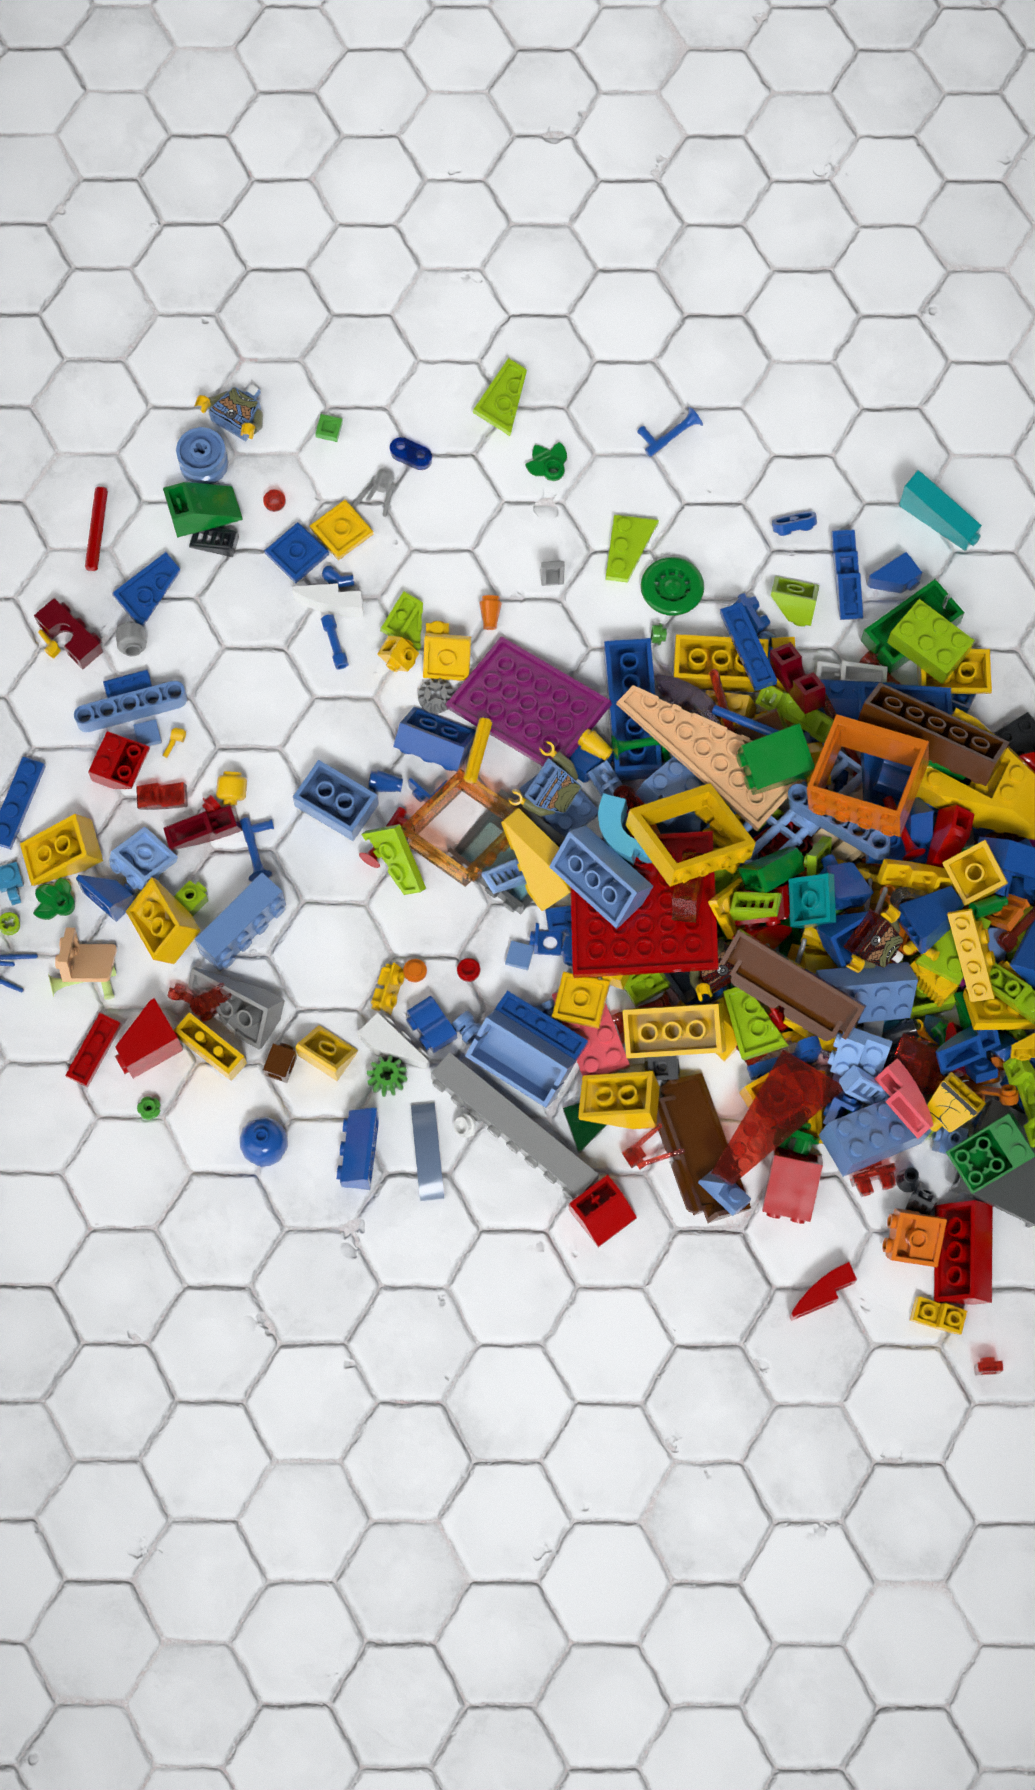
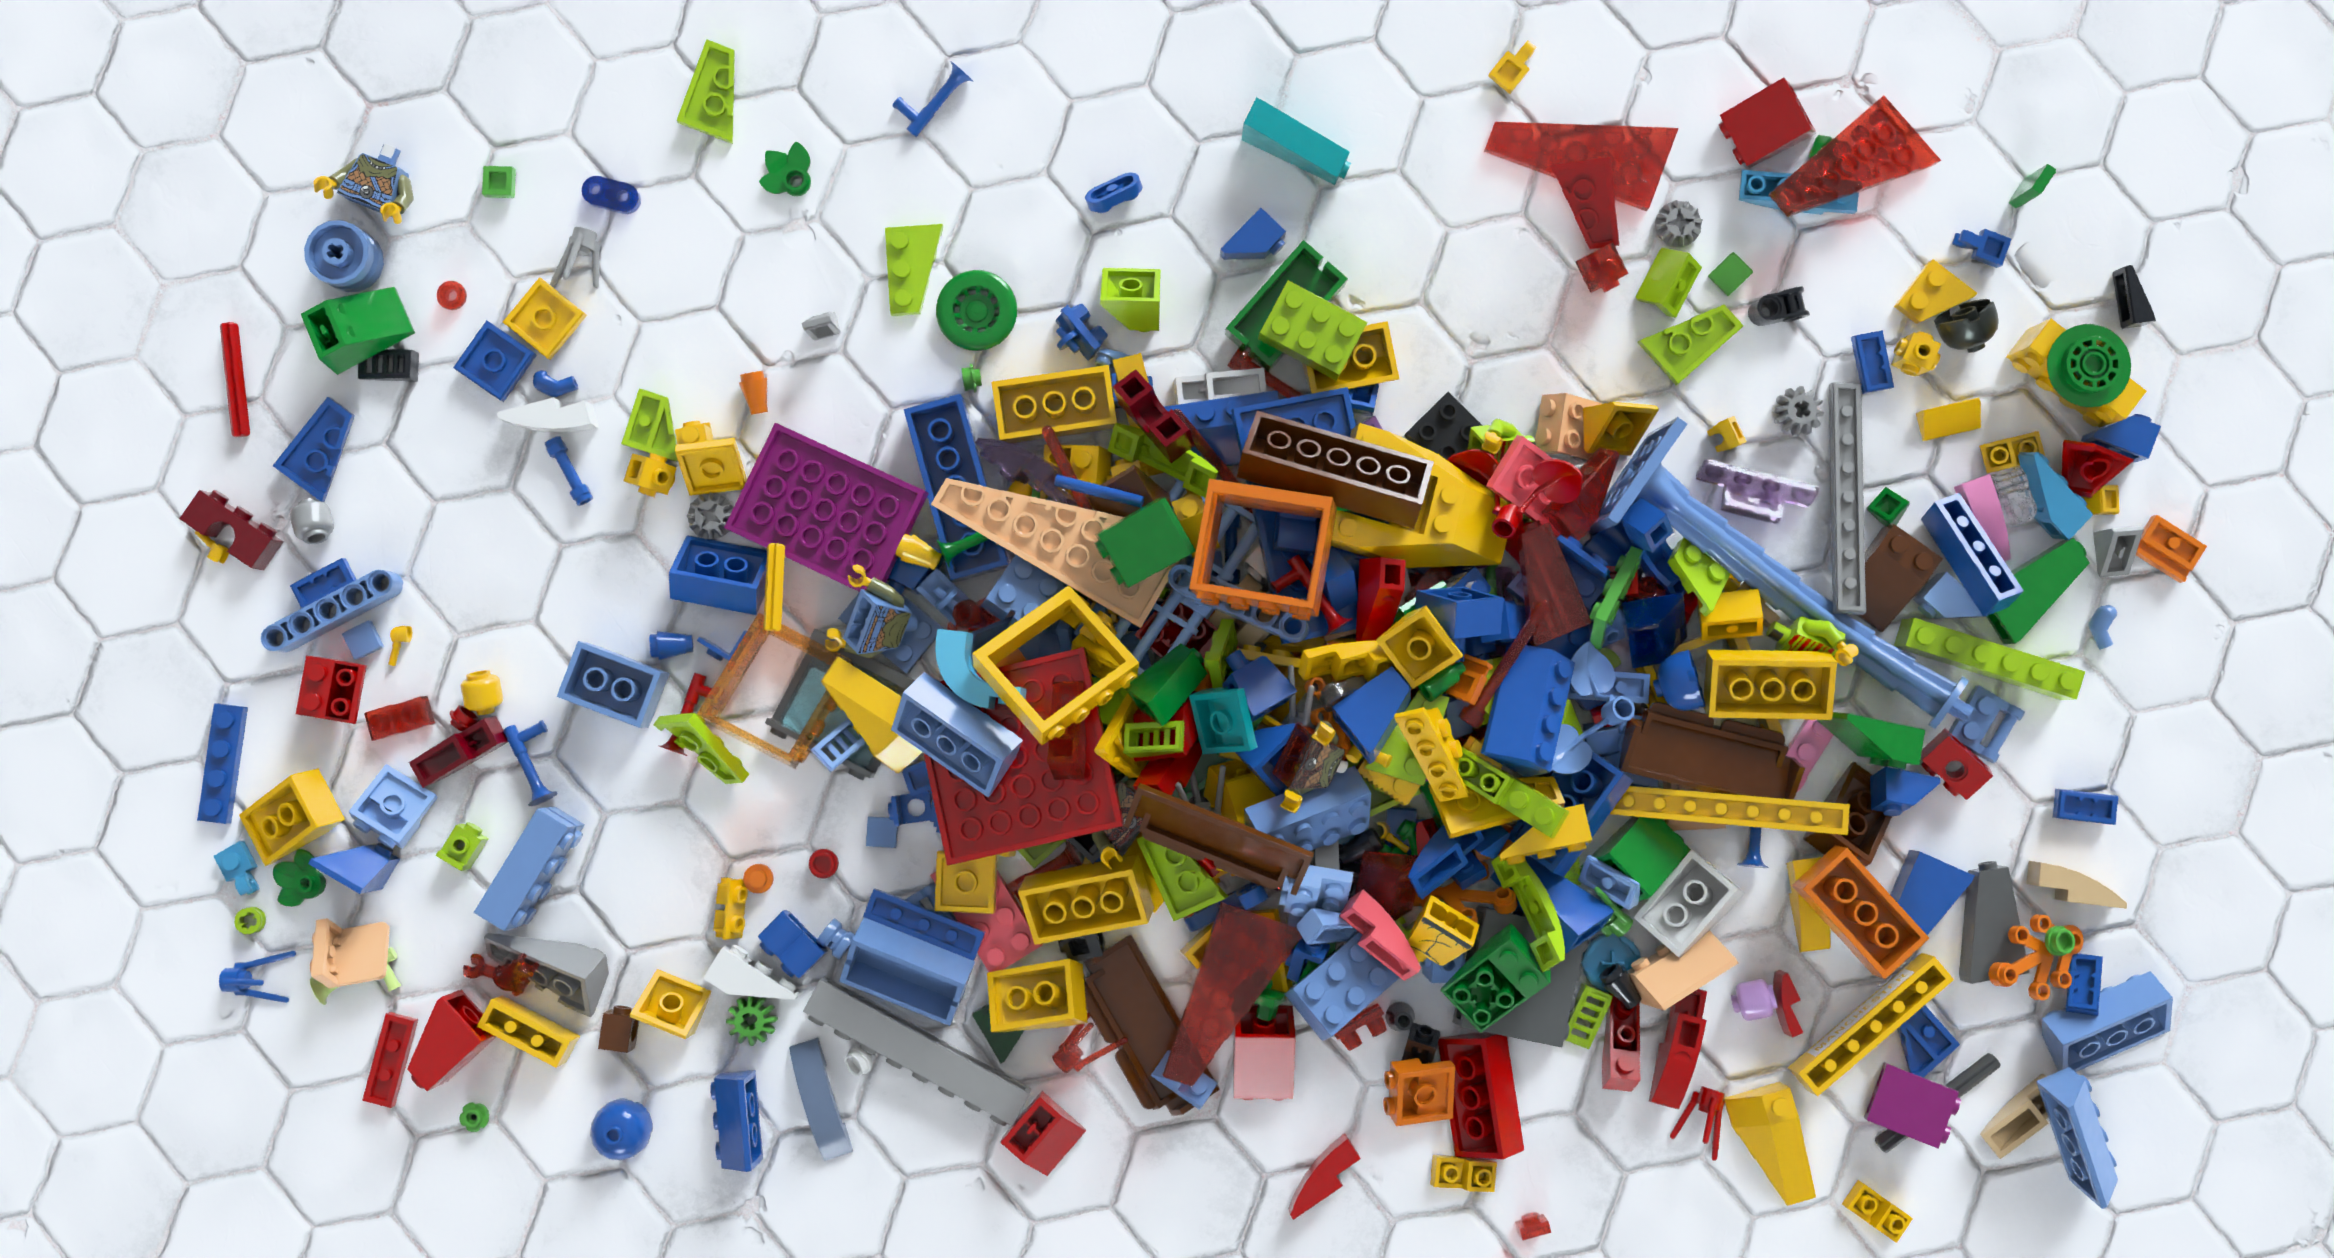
camera: 10 degrees left, 15 degrees up
(162, 922) = (434, 888): yellow slope -> none
(748, 646) = (1084, 383): blue plate -> none
(847, 574) = (1192, 249): blue slope -> none

